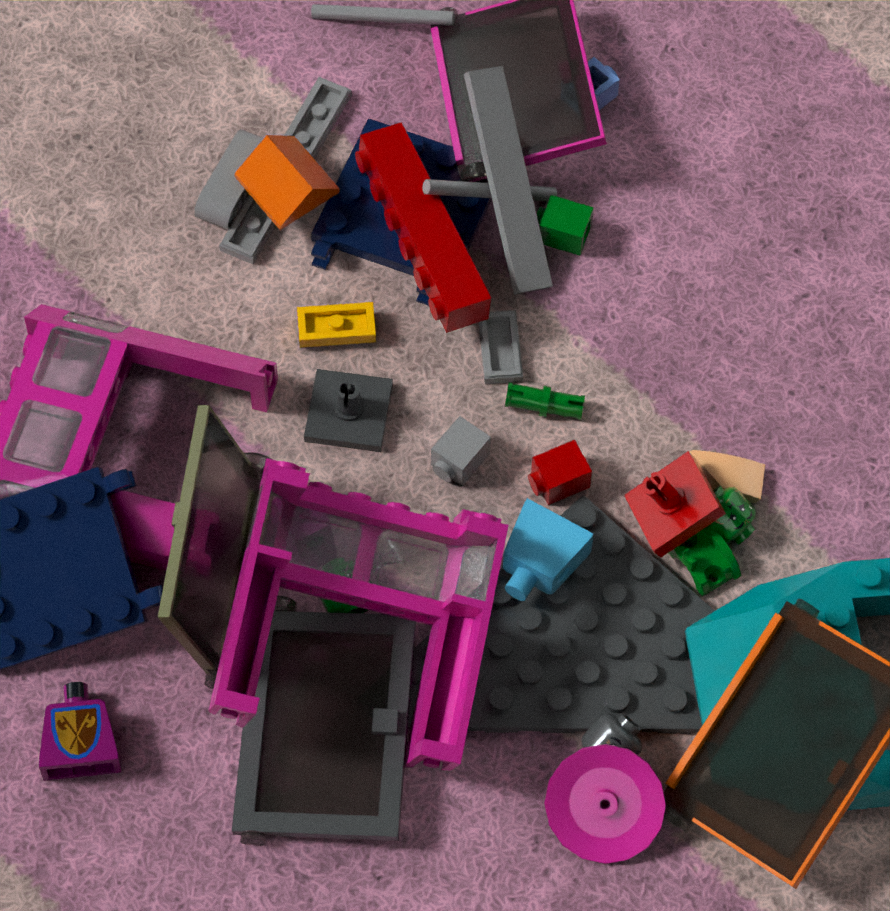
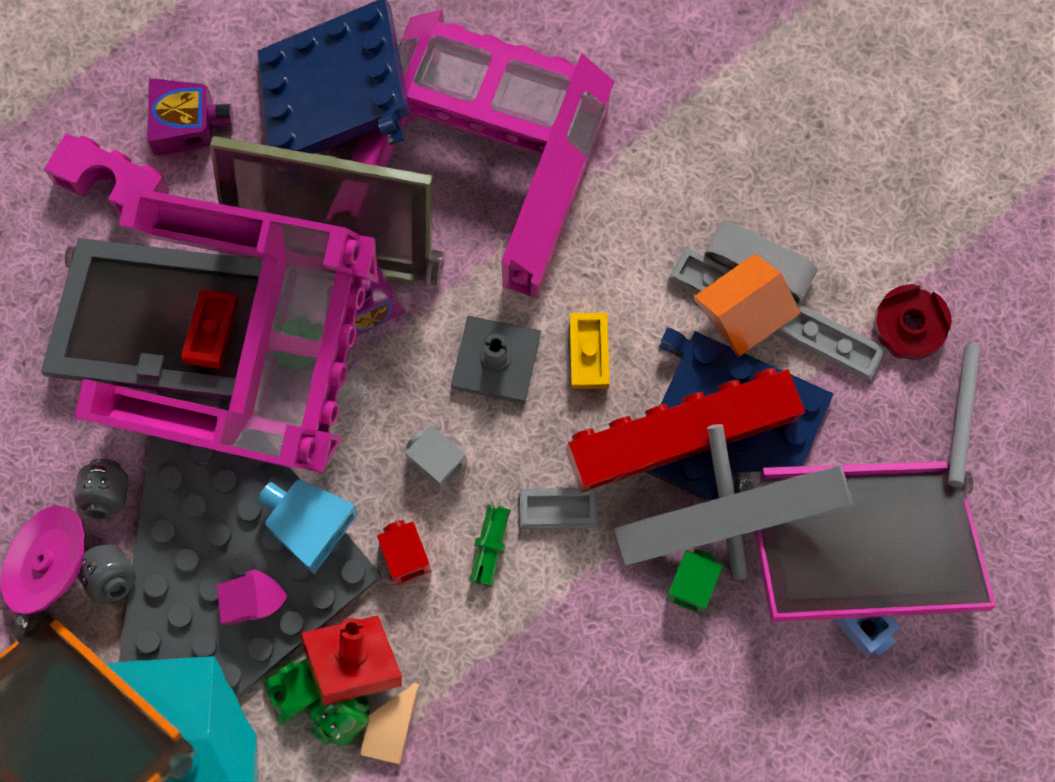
camera: 95 degrees right, 10 degrees up
(169, 775) = (82, 162): none -> dark pink arch
(296, 73) = (920, 304): none -> dark red plate
(341, 663) = (210, 329): none -> red plate
(519, 766) = (101, 488): none -> dark grey head
(627, 599) = (249, 598): none -> dark pink tile

